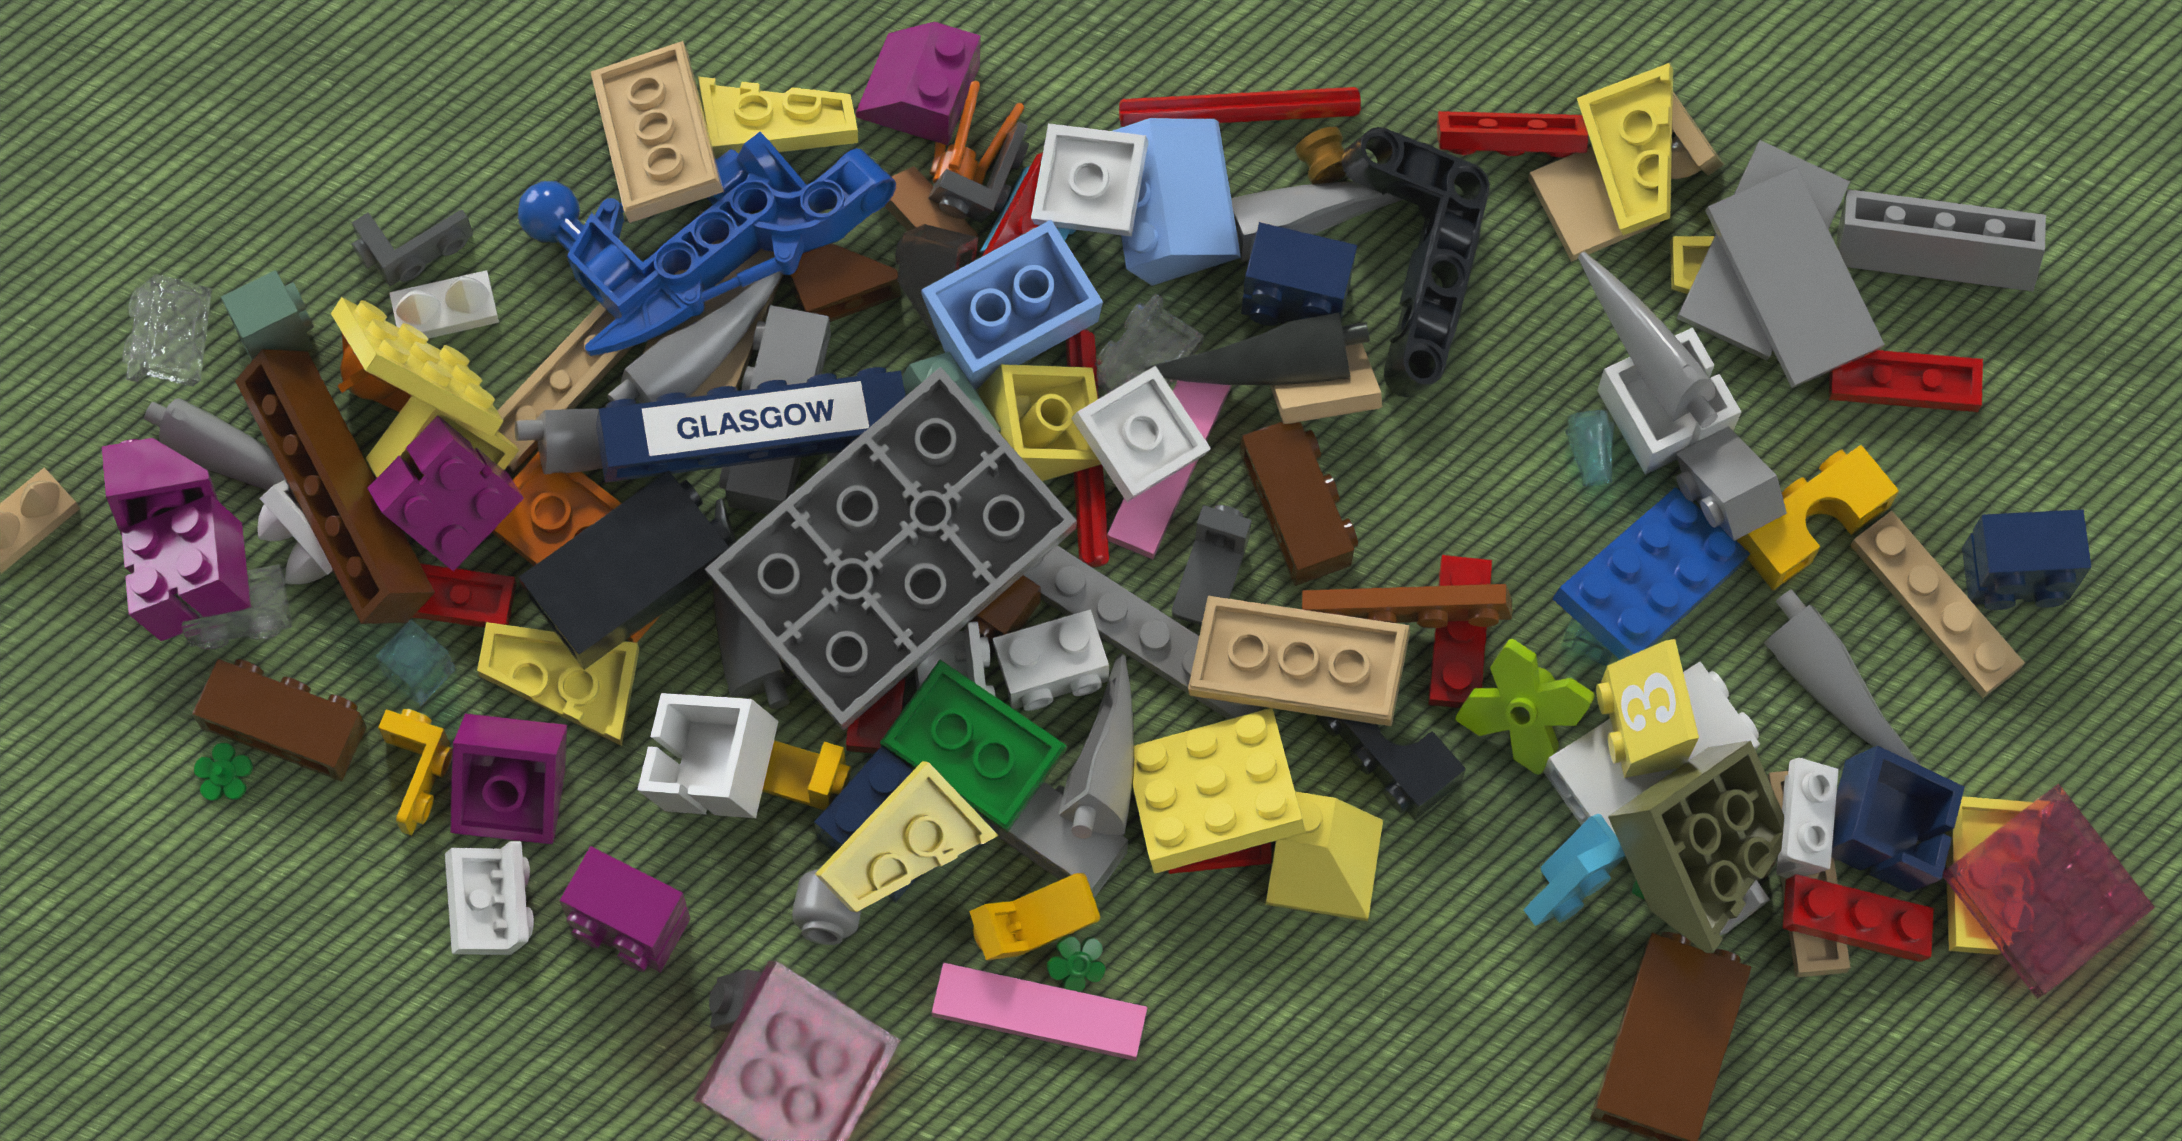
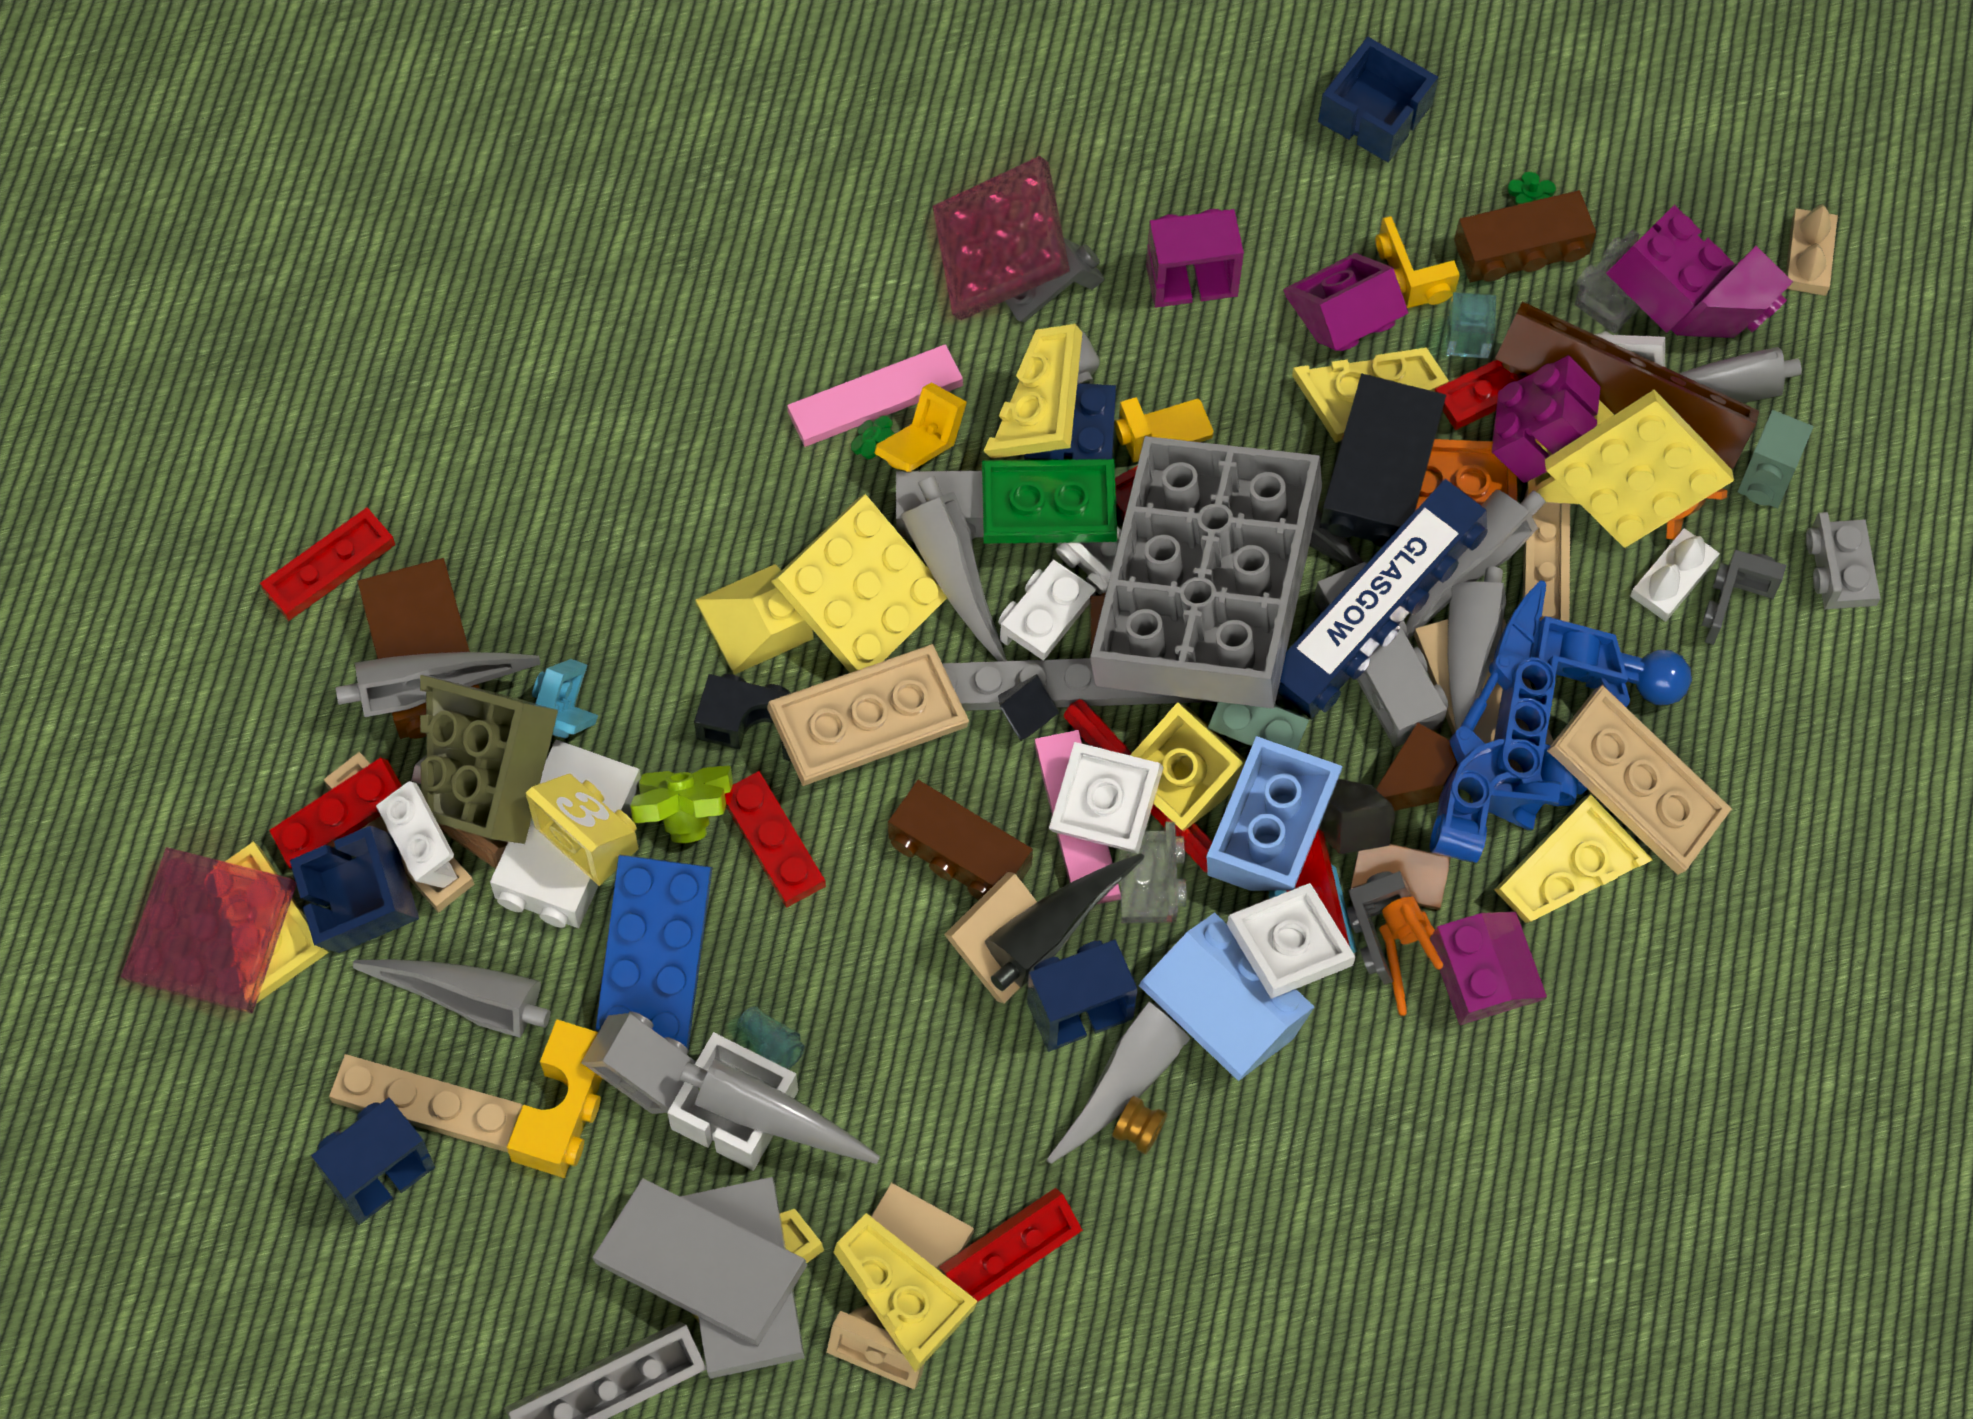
camera: 145 degrees right, 5 degrees down
(167, 330) = (1839, 427): clear bracket -> none
(286, 211) = (1843, 563): none -> light grey bracket
(293, 968) = (1377, 99): none -> dark blue piece
(488, 899) = (1293, 218): white bracket -> none
(722, 752) = (1210, 380): white piece -> none
(1142, 581) = (1027, 706): none -> black slope
(1213, 562) = (984, 756): dark grey bracket -> none
(1245, 106) = (1236, 1126): red axle -> none
(1425, 605) = (829, 805): dark orange plate -> none
(1445, 245) = (992, 1116): black beam -> none
(1707, 989) = (394, 682): none -> light grey piece
(1910, 381) = (552, 1265): red plate -> none

